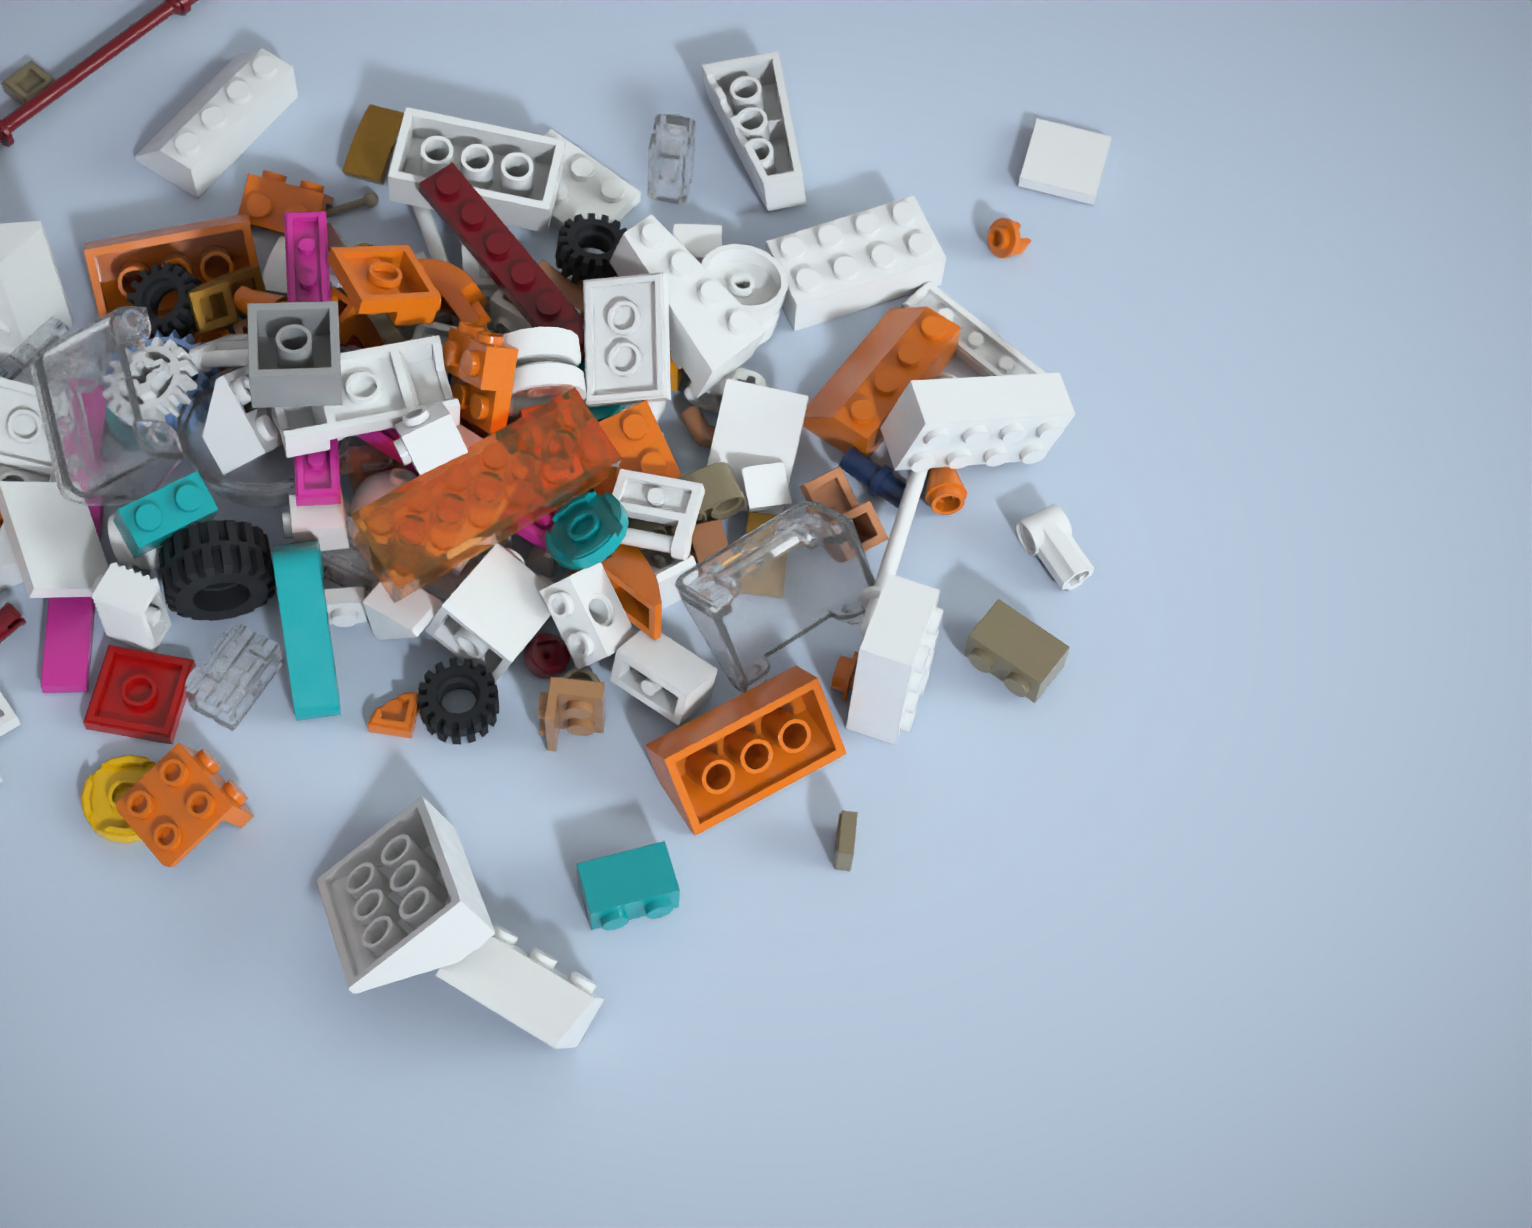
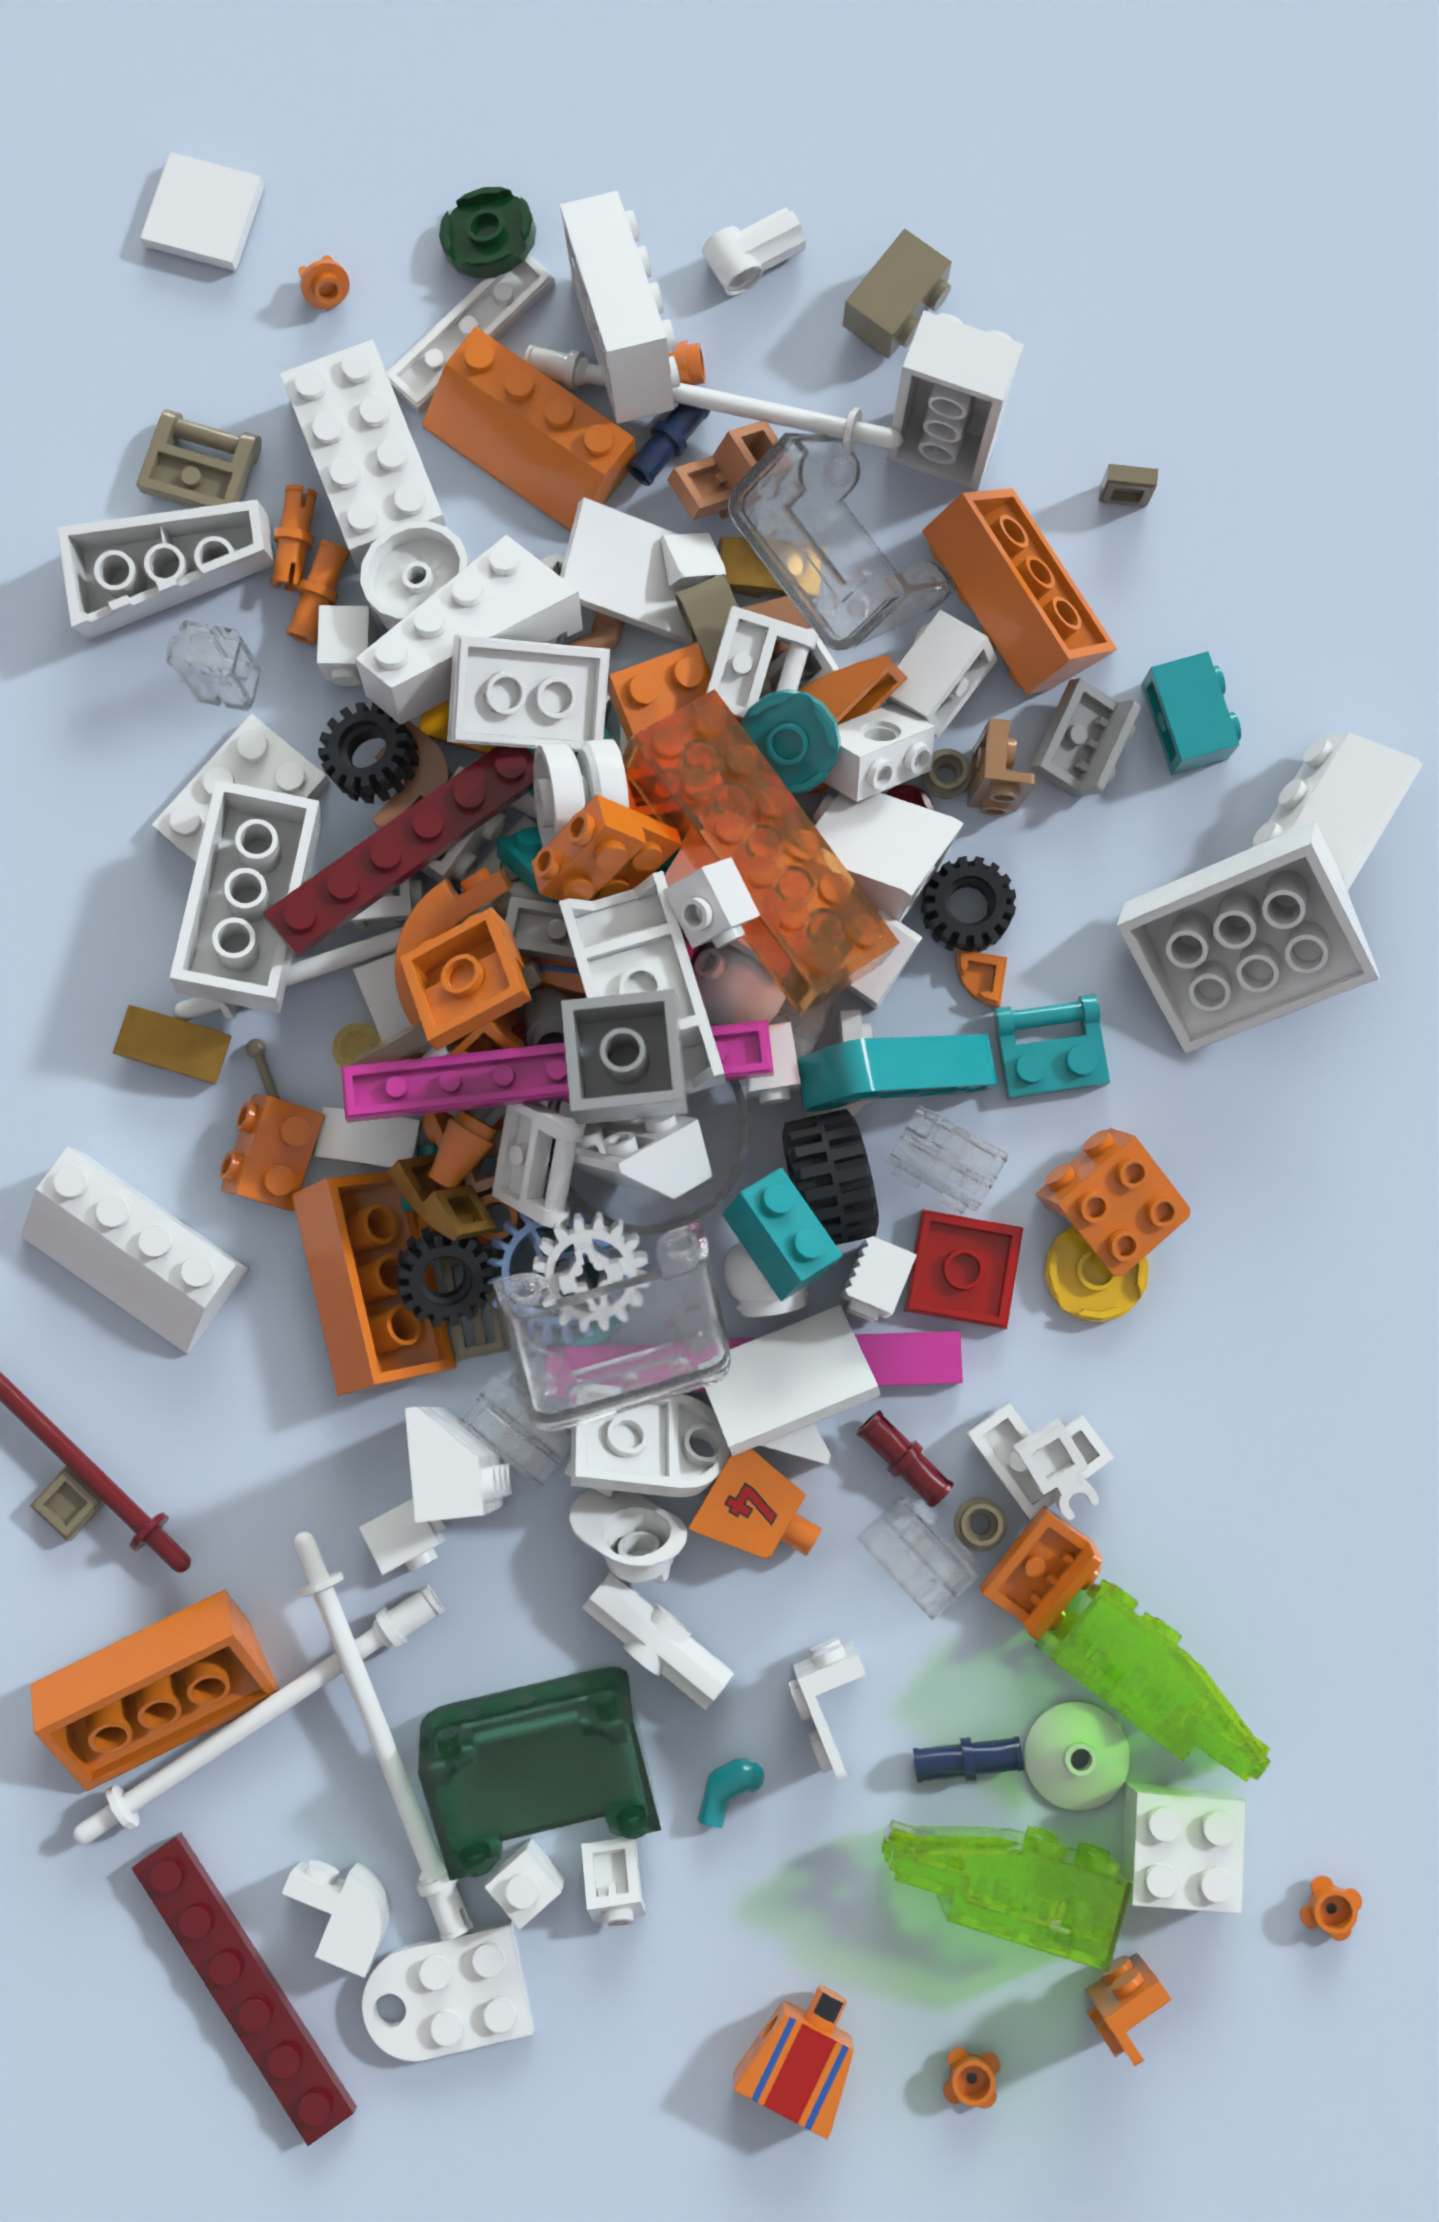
camera: 85 degrees left, 20 degrees up
(314, 772) = (1055, 1063): none -> teal plate
(606, 794) = (1085, 739): none -> light grey bracket
(741, 232) = (317, 590): none -> orange pin
(783, 218) = (293, 537): none -> orange pin
(836, 152) = (192, 476): none -> dark tan plate
(844, 674) = (926, 479): orange plate -> none
(1055, 347) = (487, 232): none -> dark green tile

